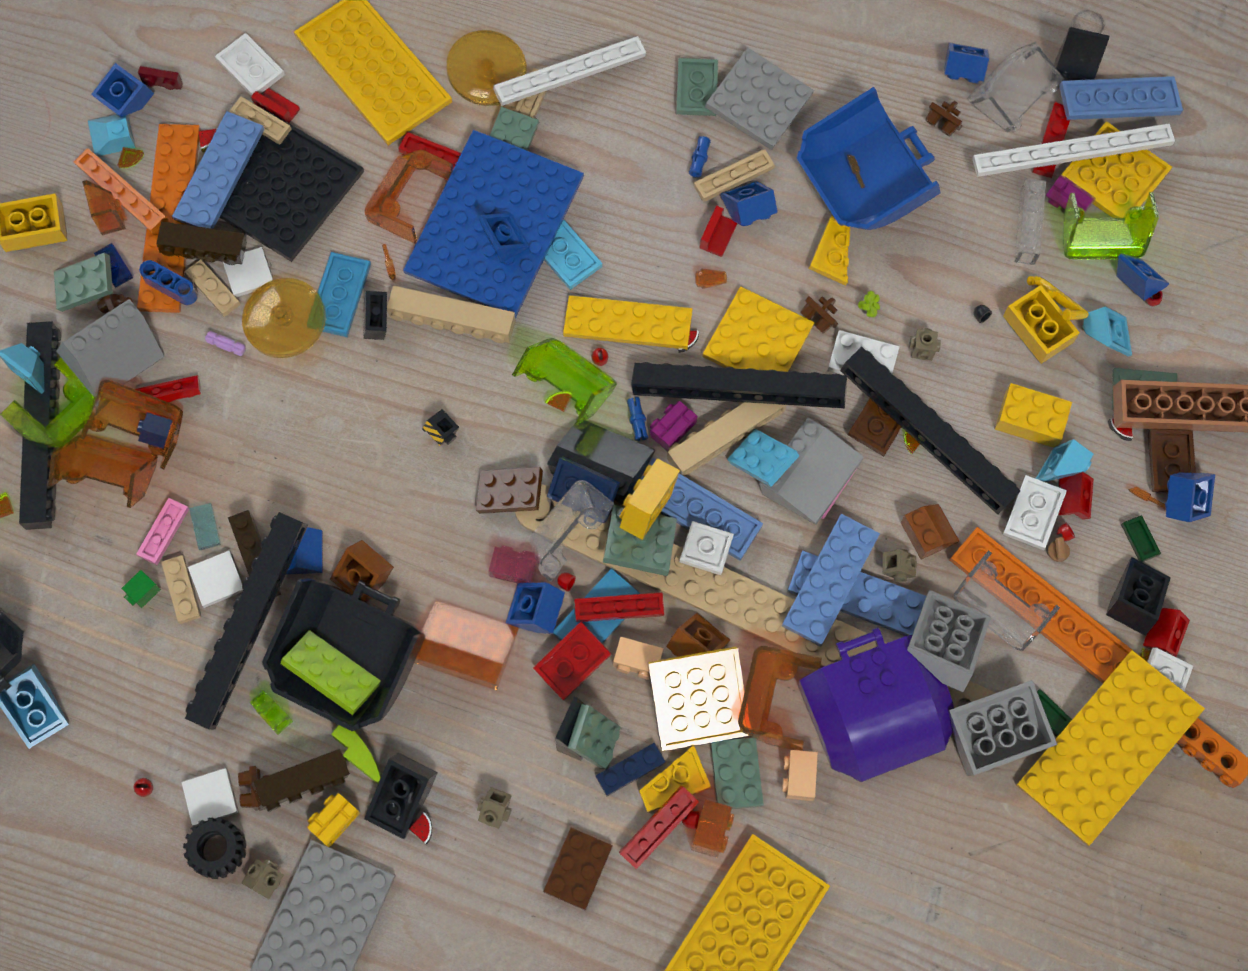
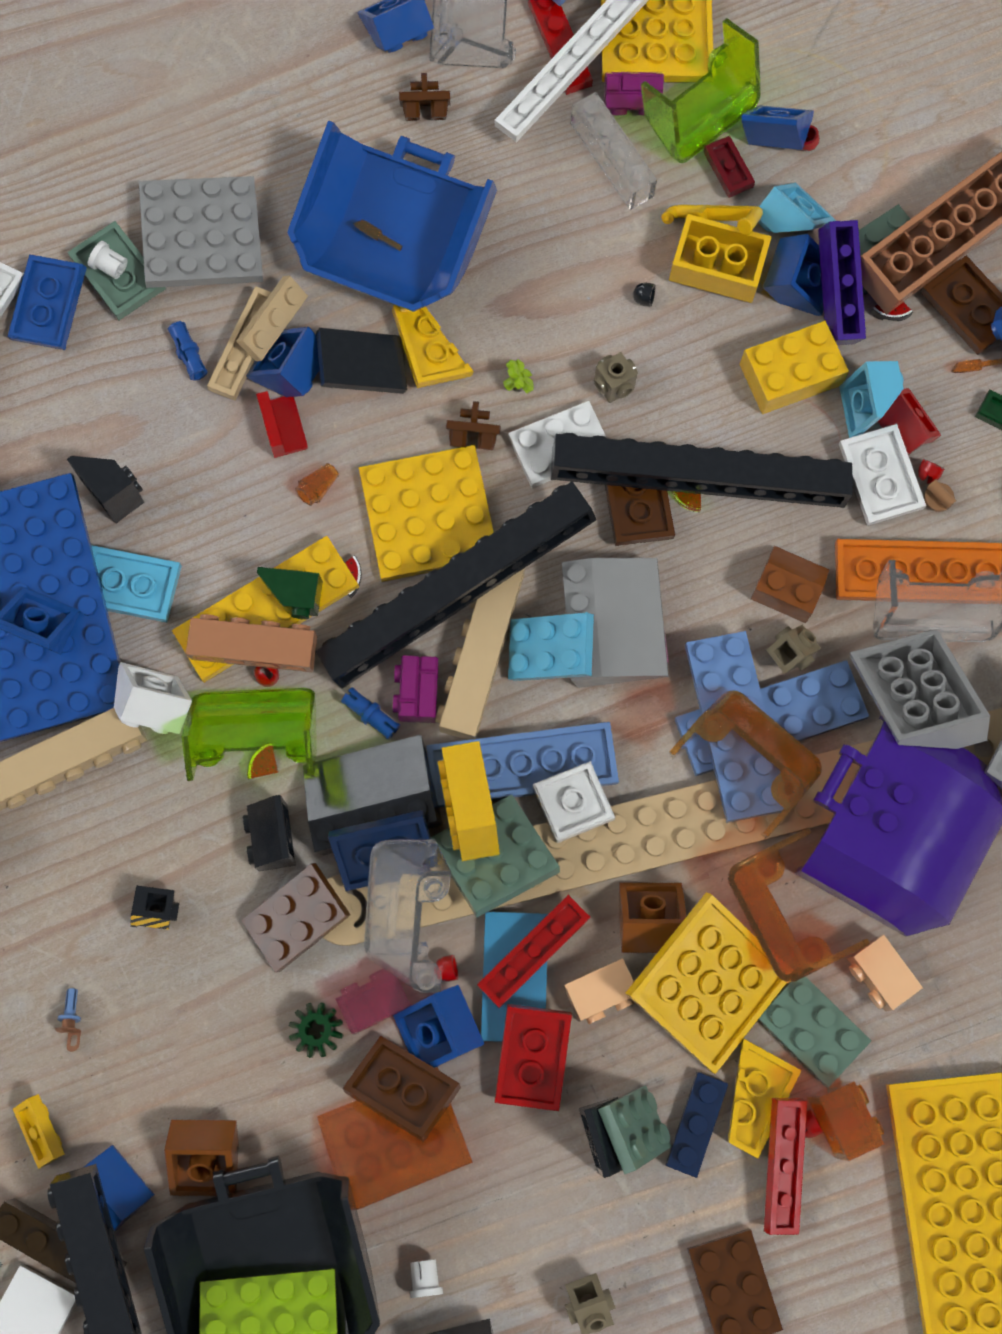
camera: 40 degrees left, 5 degrees up
(292, 492) = (38, 1131): none -> yellow plate
(353, 450) = (69, 1019): none -> piece
(421, 726) = (424, 1279): none -> white bush
(476, 563) = (311, 1040): none -> dark green gear
(491, 619) = (402, 1088): none -> reddish brown plate
(527, 320) = (150, 699): none -> white slope
(532, 438) = (270, 834): none -> black slope
(599, 196) = (109, 484): none -> black slope
(604, 332) = (252, 644): none -> nougat brick
(646, 76) = (47, 302): none -> blue tile
(650, 322) = (295, 590): none -> dark green slope
(695, 77) = (107, 260): none -> white bush
(759, 172) = (272, 318): none -> tan plate
(788, 230) = (361, 361): none -> black tile
(842, 620) = (738, 713): none -> clear orange windscreen
(1083, 369) = (796, 274): none -> blue slope
(1092, 279) = (729, 166): none -> dark red plate
(1100, 388) = (842, 281): none -> dark purple brick

